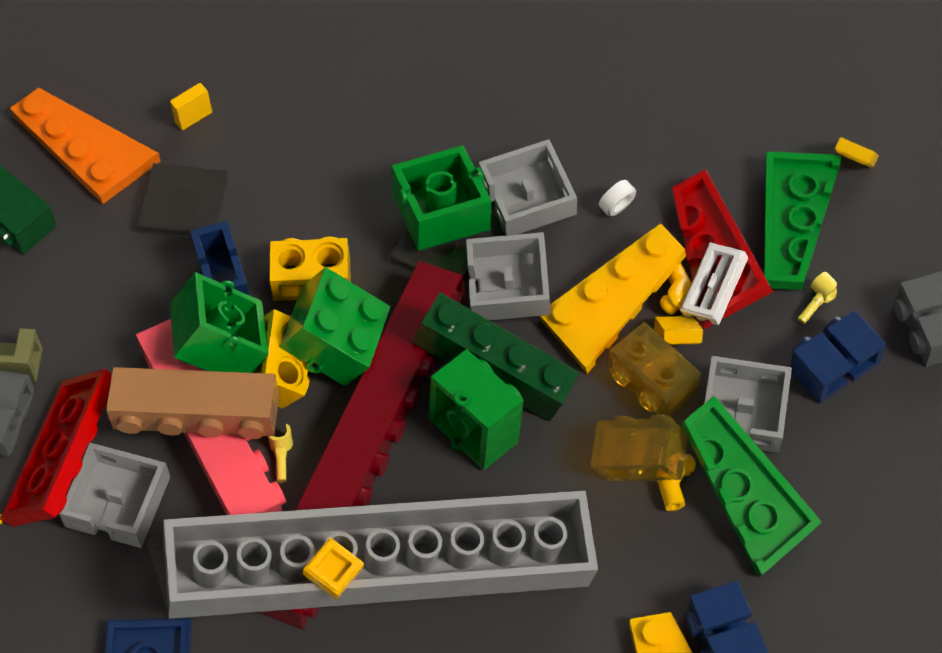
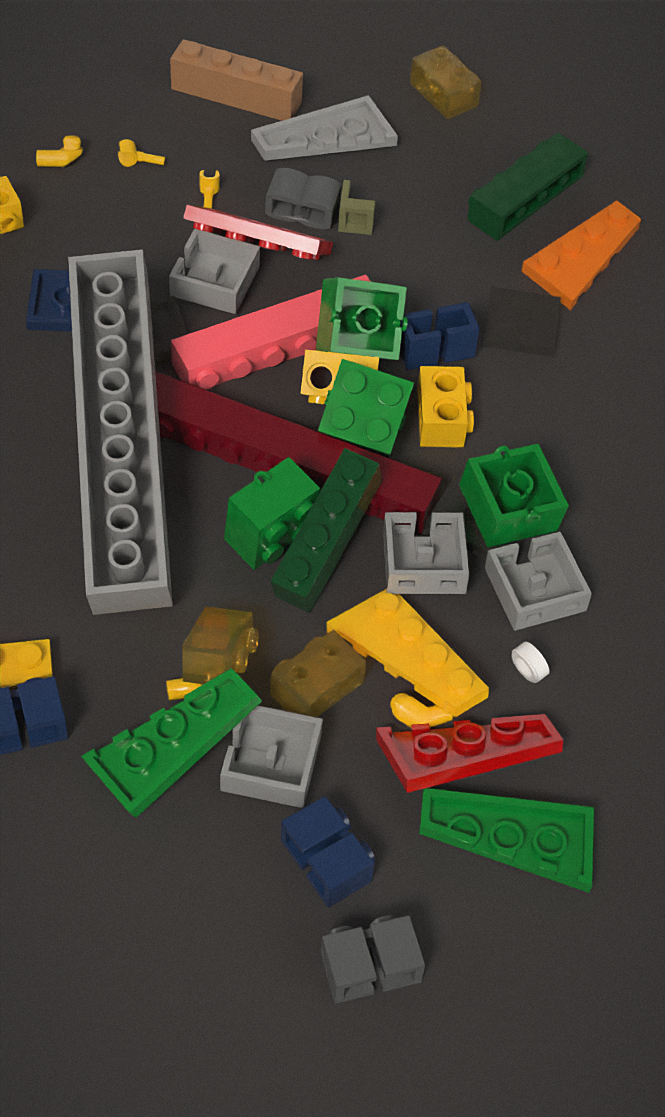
camera: 85 degrees right, 5 degrees down
(191, 106) = (624, 321): yellow tile -> none
(193, 402) = (284, 303): medium nougat brick -> none
(281, 446) = (264, 389): light yellow hand -> none
(333, 568) = (90, 371): yellow tile -> none
(679, 330) = (365, 703): yellow tile -> none
(726, 290) = (415, 734): white tile -> none
(826, 291) = (416, 856): light yellow hand -> none
(856, 152) = (598, 904): yellow tile -> none

